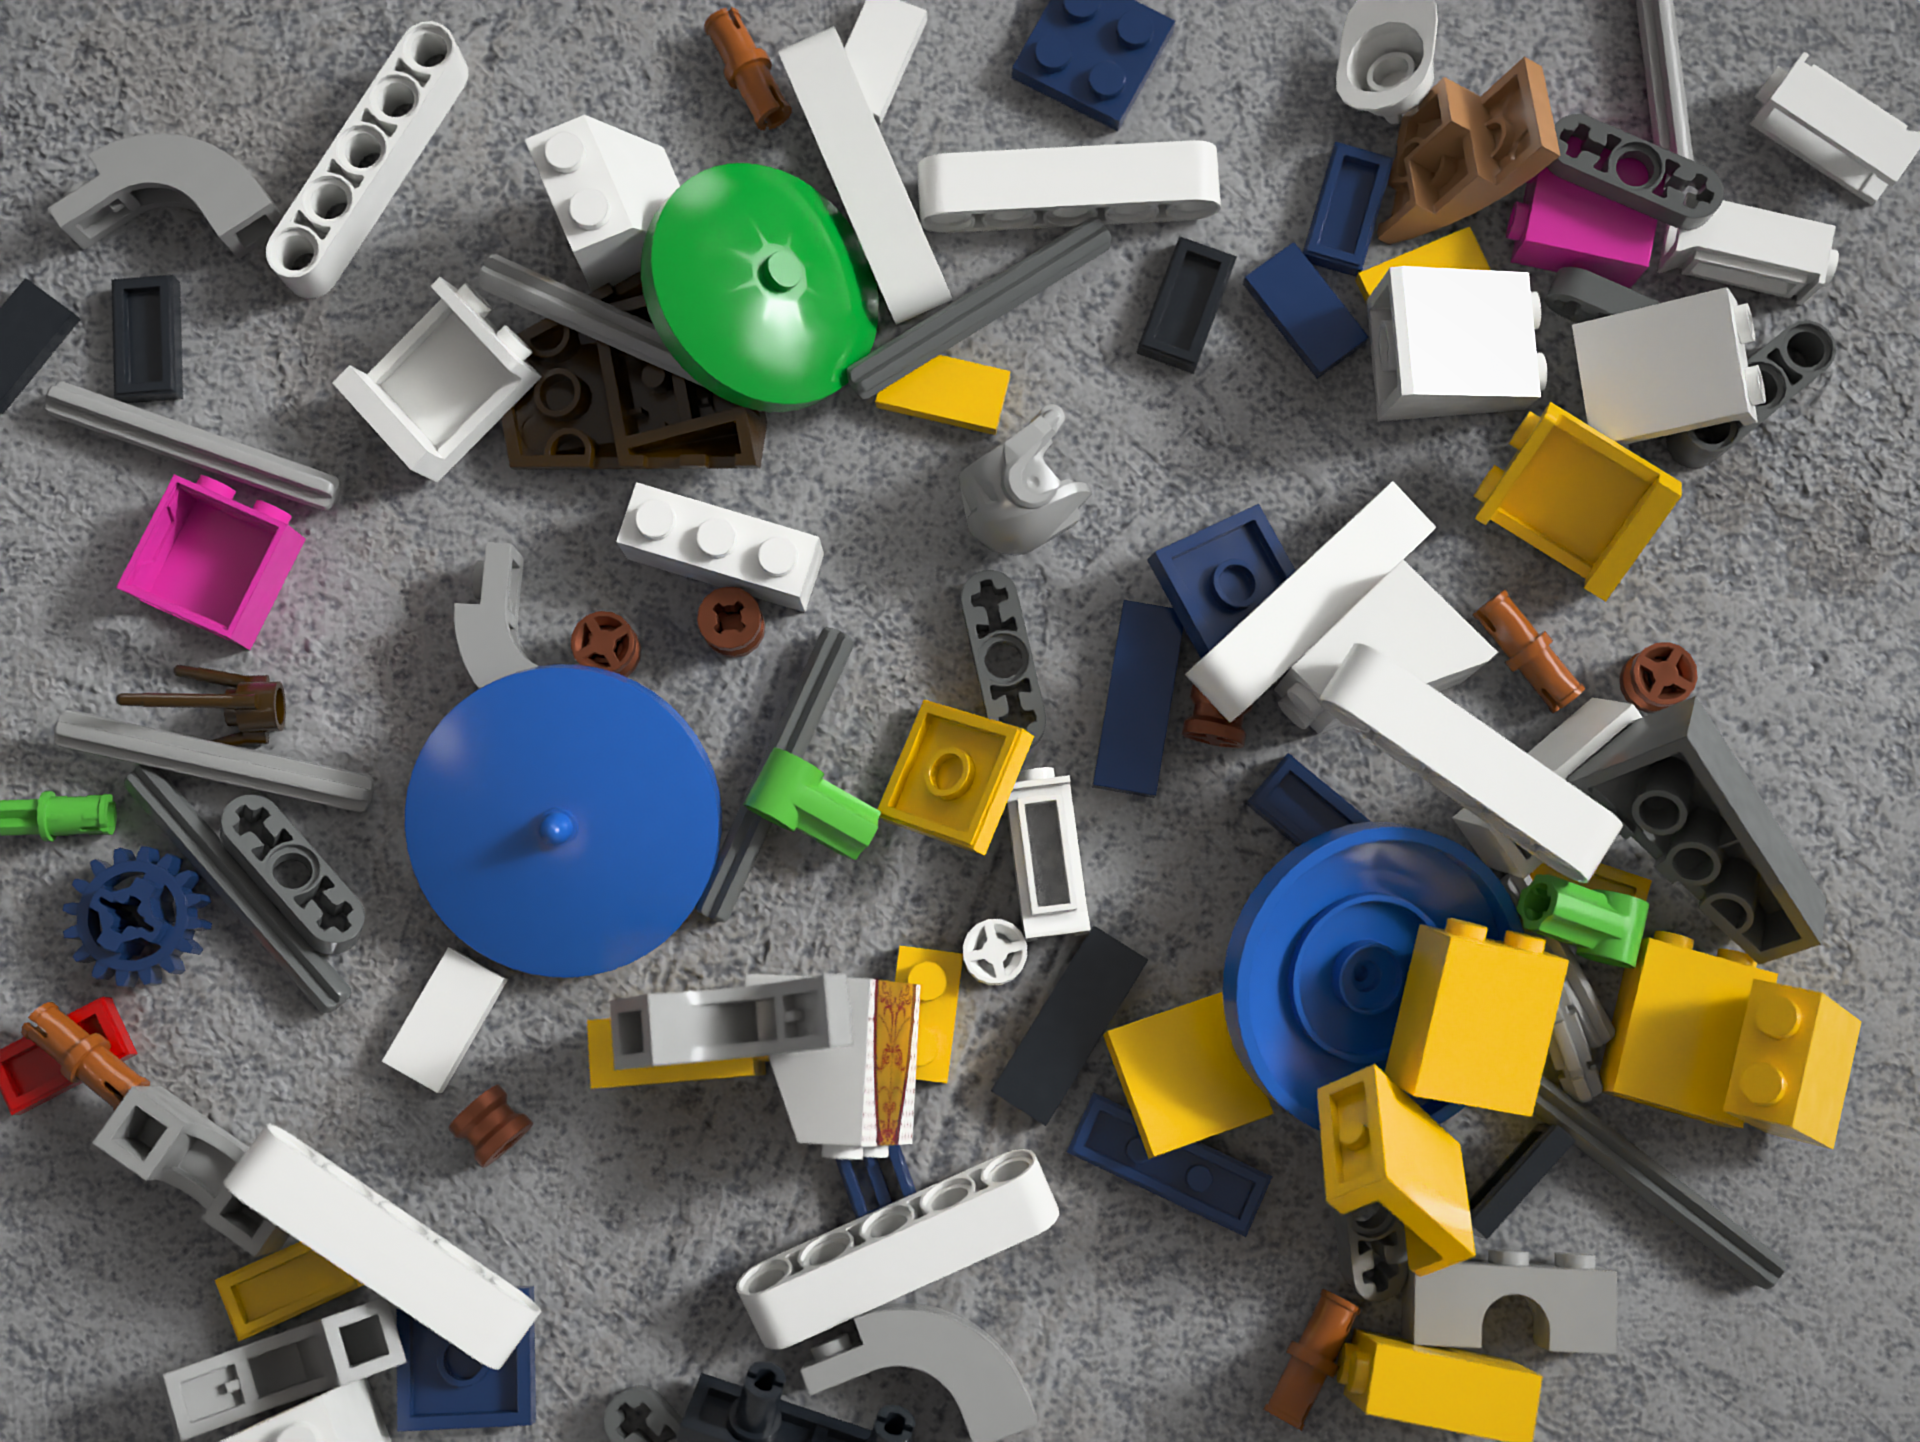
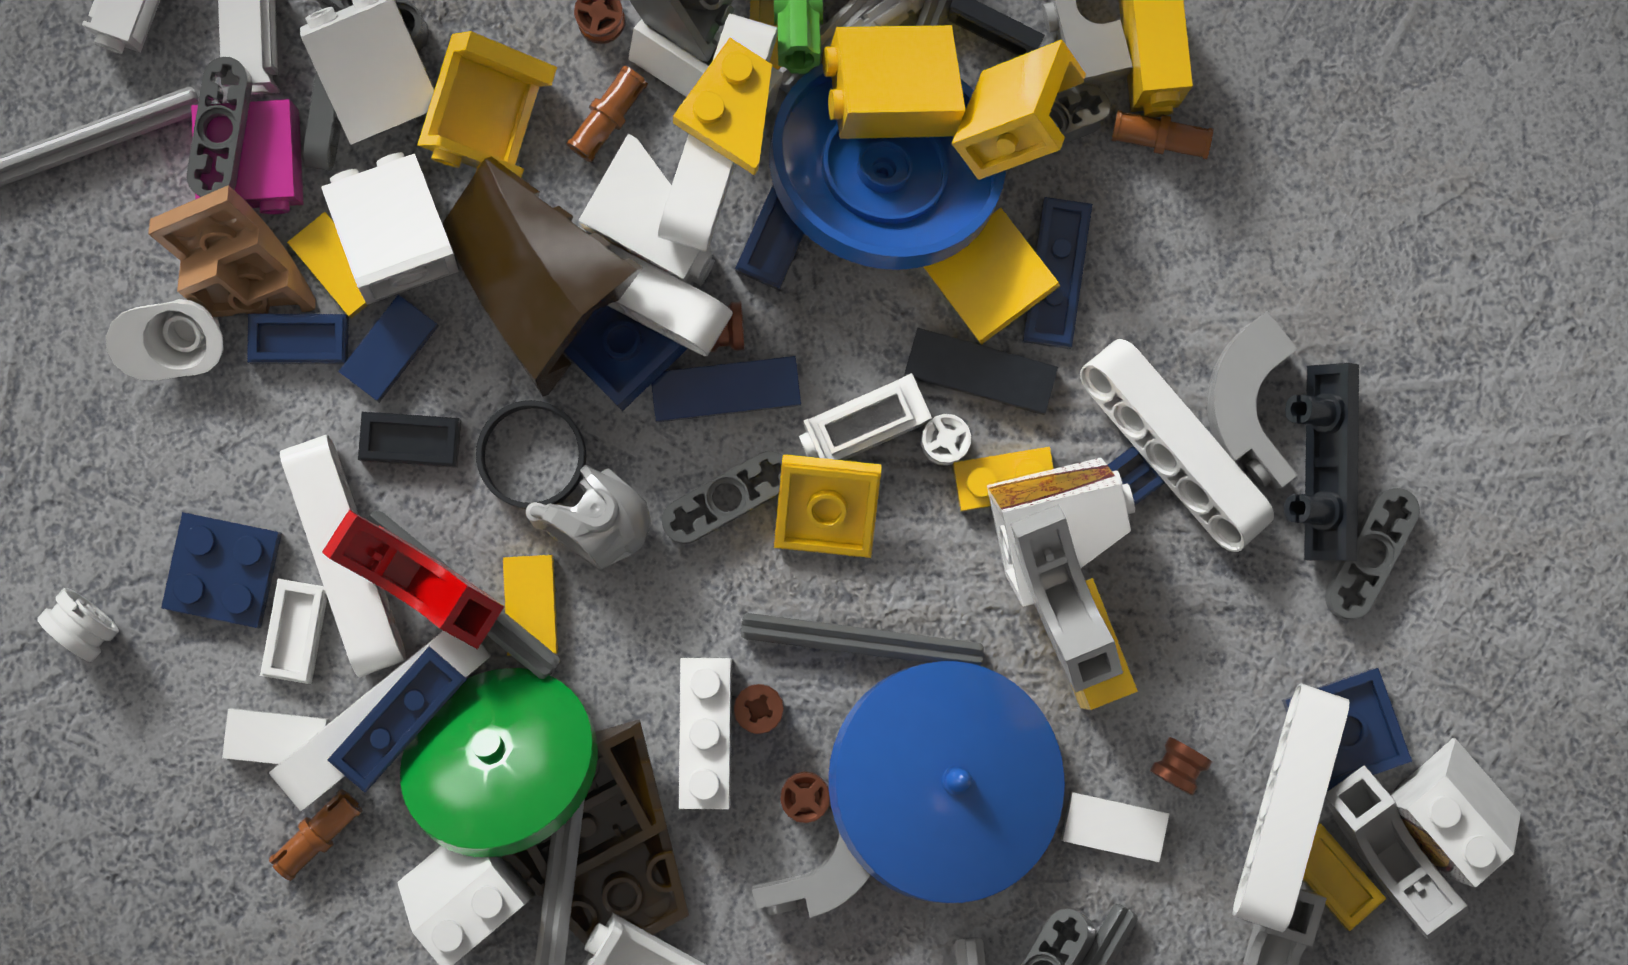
camera: 110 degrees left, 5 degrees up
(796, 797) = (878, 613): bright green piece -> none
(850, 184) = (397, 719): none -> dark blue tile
(992, 268) = (414, 578): none -> red arch
(993, 109) = (294, 631): none -> white tile
(1146, 382) = (499, 416): none -> black tyre
(1353, 492) = (532, 268): none -> dark brown wedge
(1502, 782) = (730, 105): none -> yellow wing

